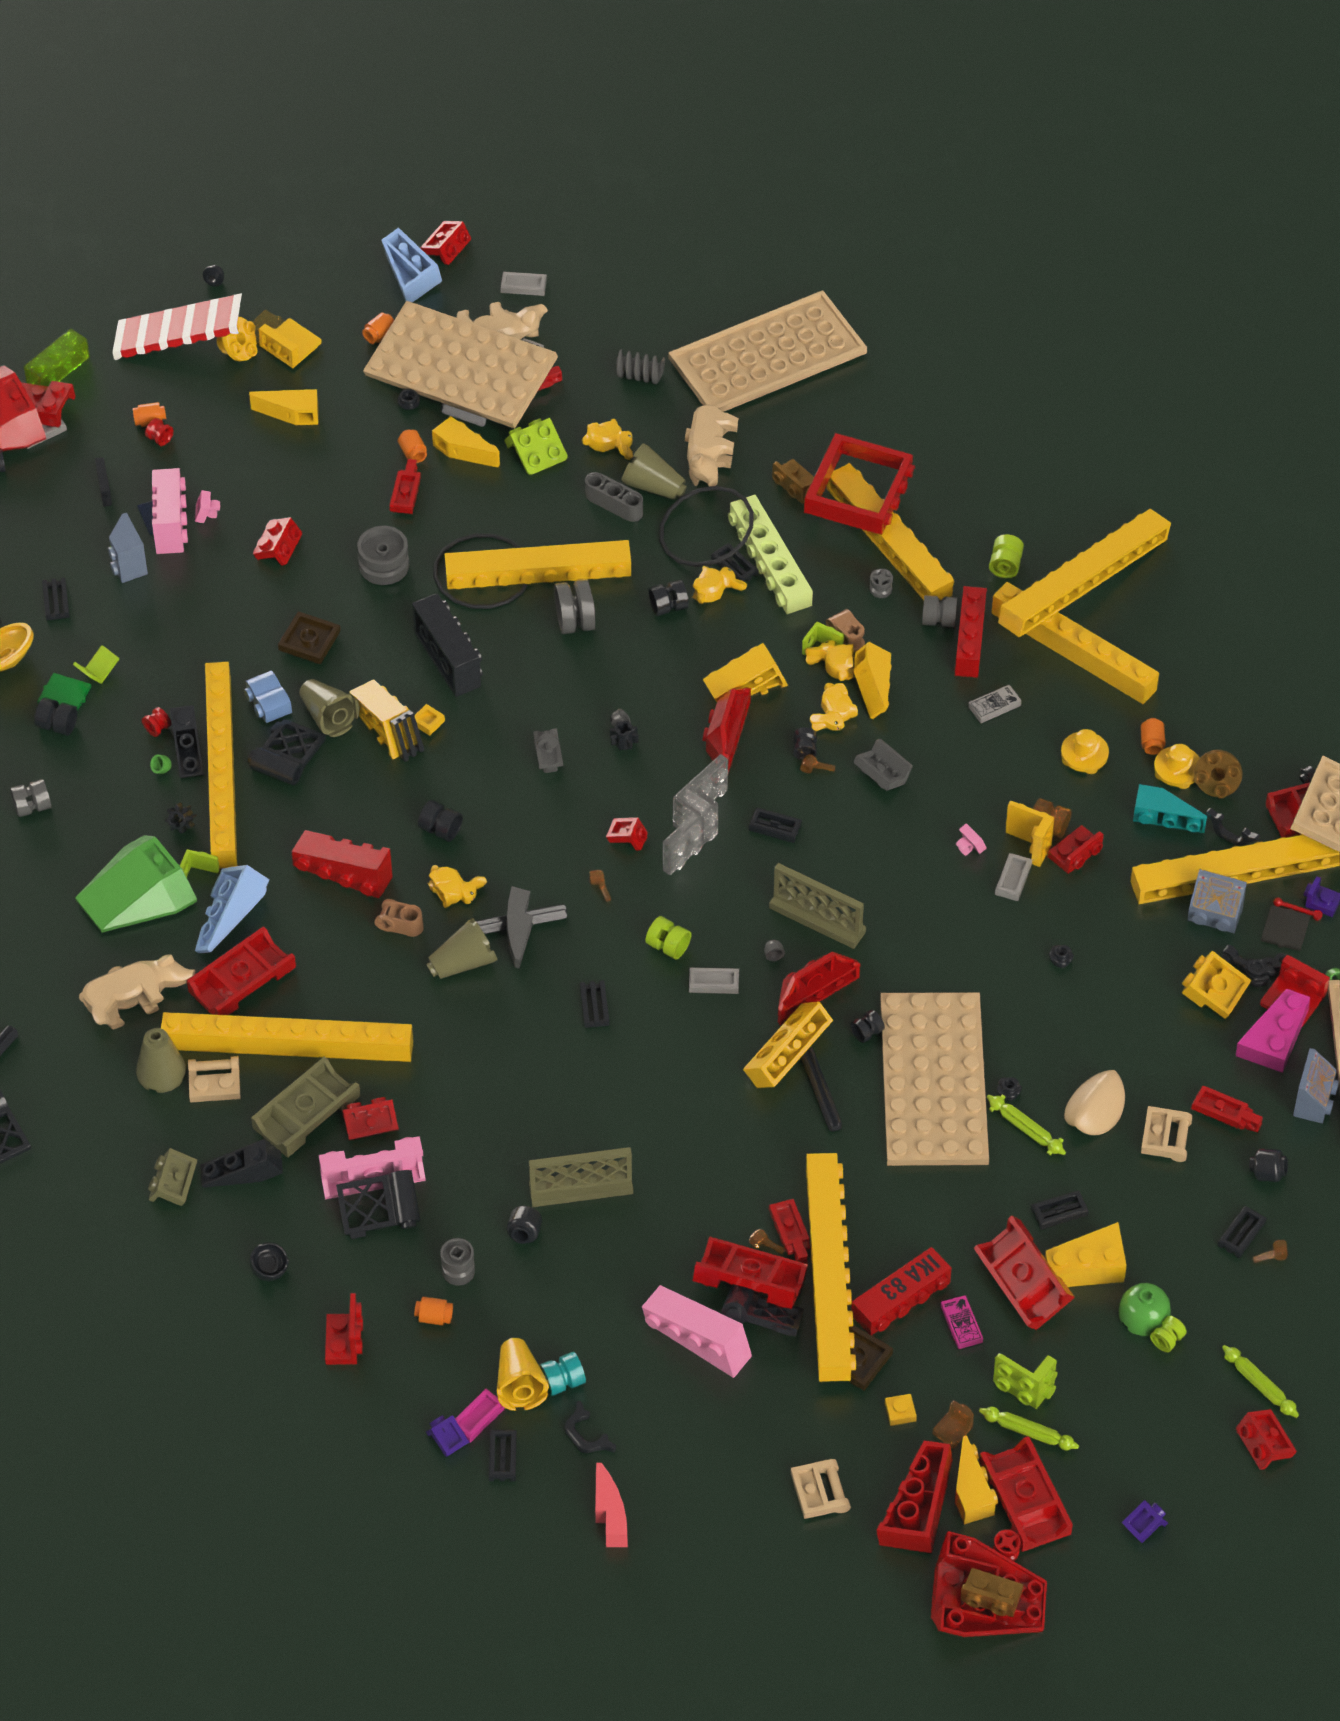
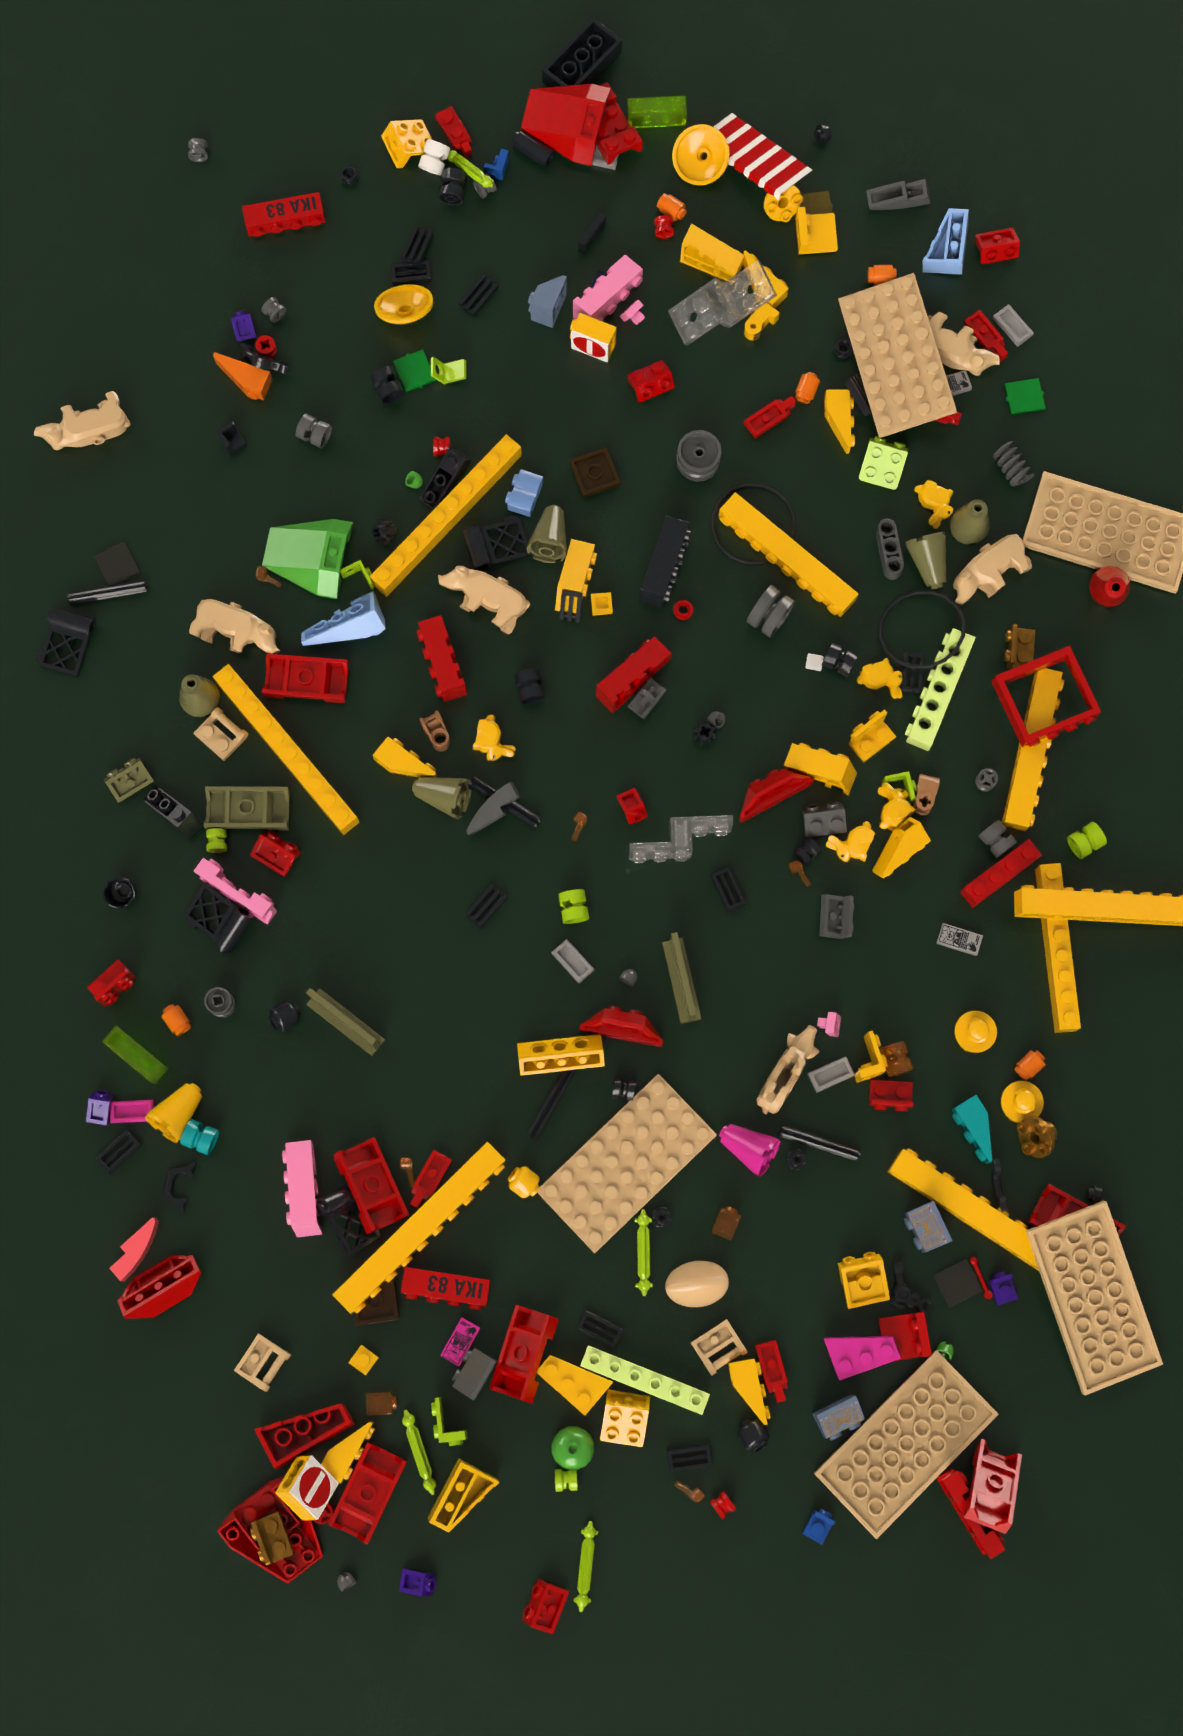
camera: 45 degrees right, 25 degrees up
(108, 938) = (261, 575): none -> clear orange hand
(130, 344) = (689, 150): none -> yellow dish
(195, 544) = (593, 337): none -> piece
(223, 418) = (710, 254): none -> yellow wedge
(274, 440) = (722, 303): none -> clear bracket
(306, 1153) = (216, 840): none -> lime wheel
(318, 437) = (759, 320): none -> yellow leg
(325, 786) = (489, 593): none -> tan animal
(327, 267) = (898, 195): none -> dark grey slope
(396, 963) = (398, 760): none -> yellow slope
(431, 1363) = (135, 1054): none -> clear neon green brick
(499, 665) = (683, 604): none -> red plate
(511, 301) = (986, 334): none -> red hinge
(515, 744) = (632, 674): none -> red wedge
(590, 321) = (1024, 396): none -> green piece
(648, 621) = (814, 662): none -> white sticker
(655, 424) = (970, 522): none -> olive cone
(667, 1506) = (160, 1287): none -> red wedge
(758, 626) = (871, 737): none -> yellow bracket
(792, 712) = (824, 819): none -> dark grey bracket
(814, 381) = (1102, 582): none -> red cone
(870, 1161) = (523, 1182): none -> yellow head
(974, 1522) = (307, 1487): none -> piece
(979, 898) = (787, 1070): none -> tan animal
(1003, 1324) = (474, 1373): none -> dark grey slope
(1015, 973) = (750, 1147): none -> dark pink cone
(1063, 928) = (819, 1142): none -> black axle
(1063, 1045) = (726, 1223): none -> clear orange bracket
(1088, 1578) = (345, 1581): none -> dark grey hinge
(1099, 1420) = (460, 1494): none -> yellow wedge
(1144, 1202) = (645, 1380): none -> yellowish green brick
(1161, 1249) = (625, 1418): none -> yellow bracket
(1222, 1137) = (746, 1382): none -> yellow slope
(1308, 1234) = (722, 1505): none -> red wheel

